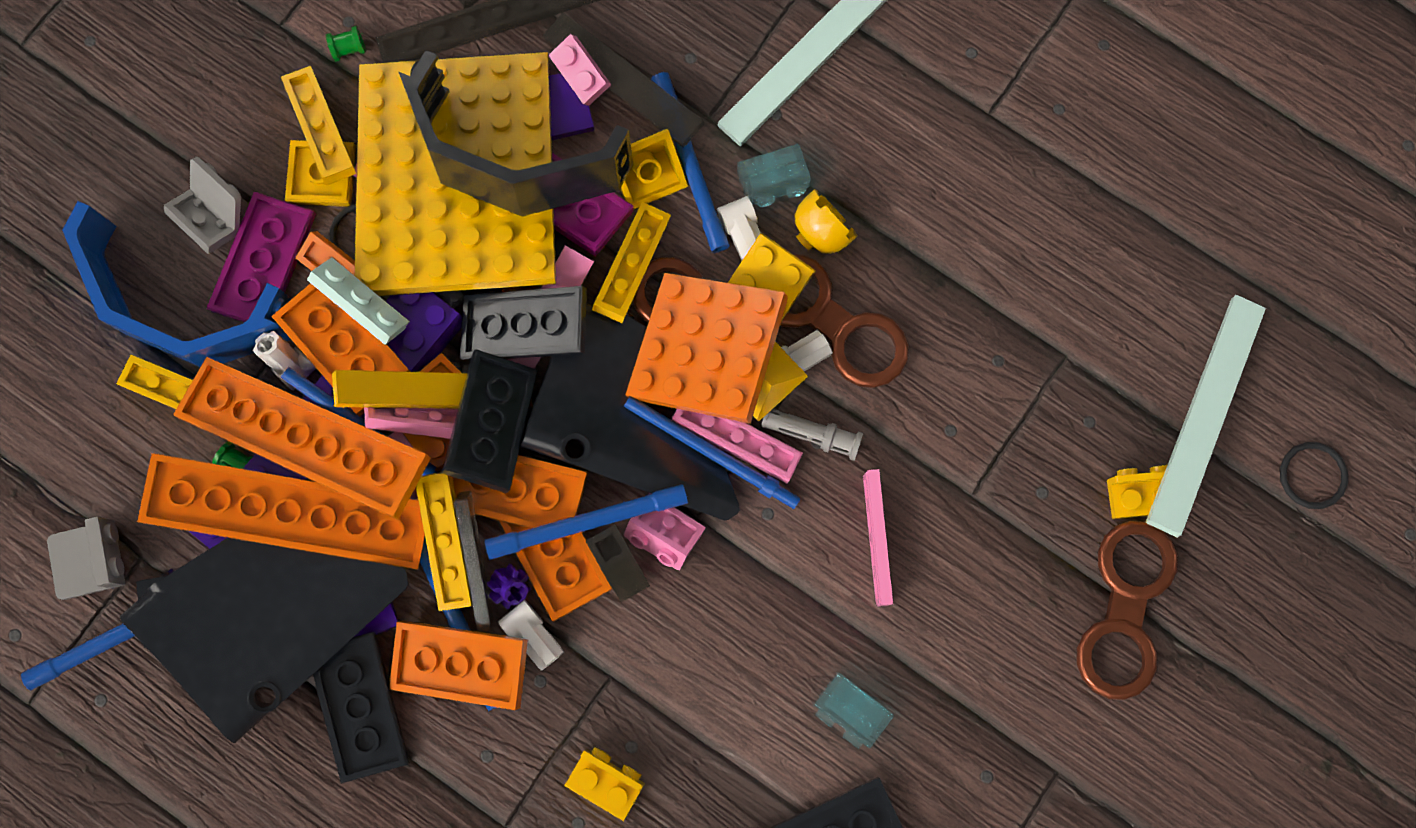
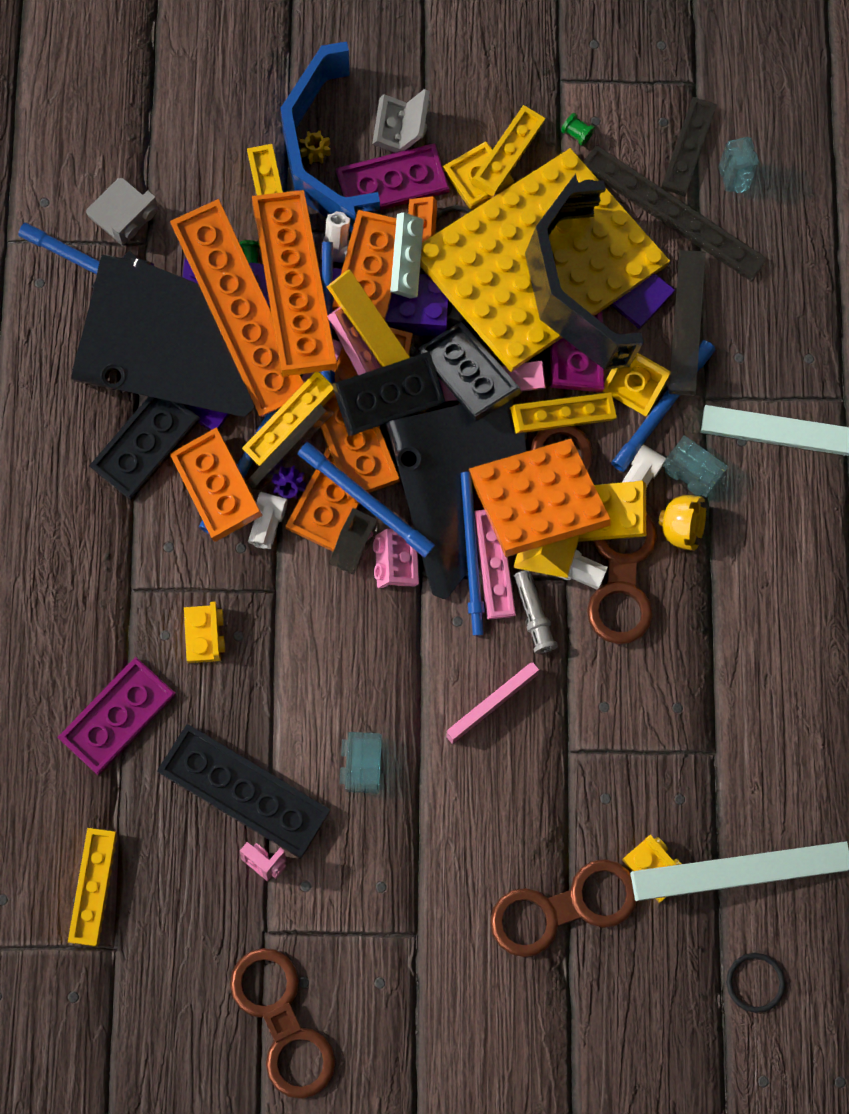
camera: 50 degrees right, 5 degrees down
(167, 313) = (320, 143): none -> yellow gear
(579, 70) = (672, 289): bright pink plate -> none

